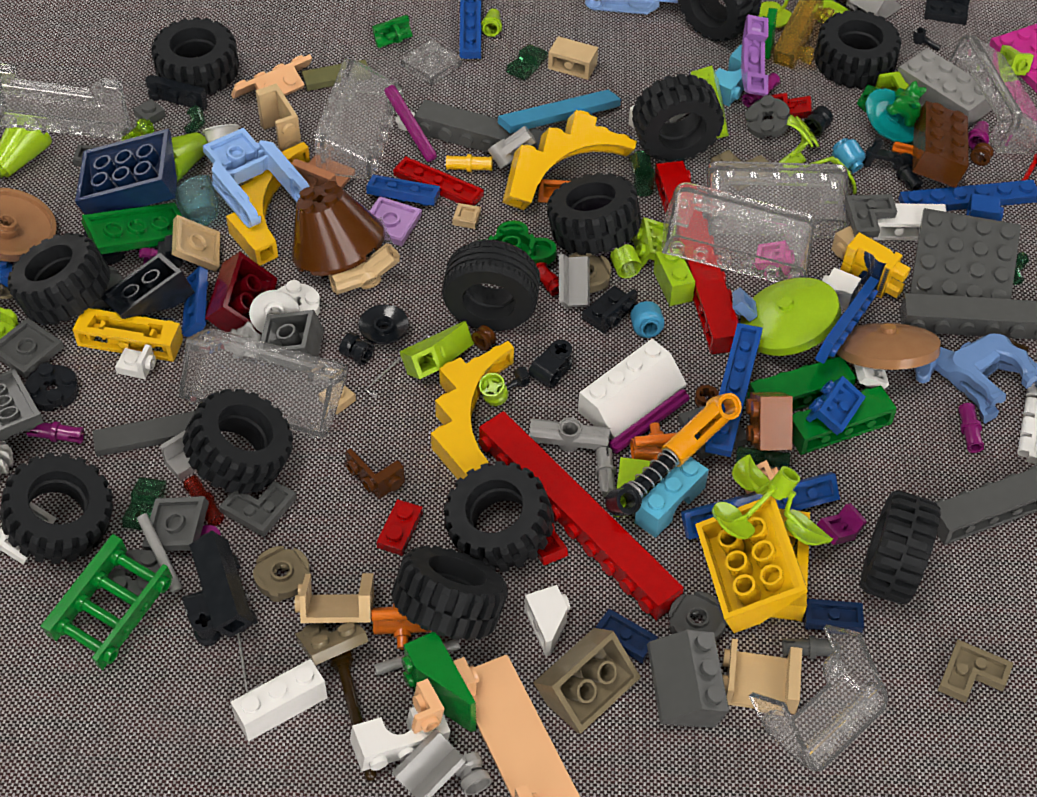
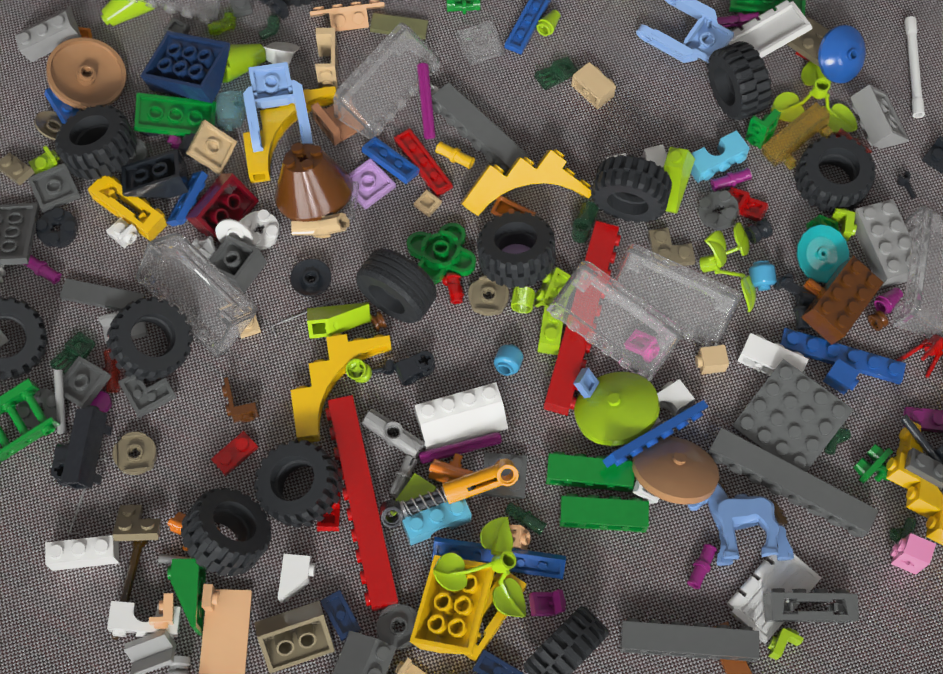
camera: 25 degrees right, 15 degrees up
(335, 608) = (153, 499): tan panel -> none
(358, 349) = (281, 291): black wheel -> none
(504, 150) = (485, 157): light grey piece -> none
(558, 111) = (549, 136): dark azure tile -> none
(574, 281) = (468, 302): light grey panel -> none
(610, 309) = (488, 335): black bracket -> none
(704, 390) = (515, 439): reddish brown bush -> none
(736, 381) = (536, 450): blue plate -> none
(753, 55) = (735, 151): medium lavender slope -> none
(770, 420) = (539, 495): brick -> none
(836, 404) = (598, 505): blue bracket -> none
(866, 209) = (733, 338): dark grey plate -> none
(869, 258) = (713, 391): yellow hips -> none
(908, 103) = (839, 249): green animal -> none

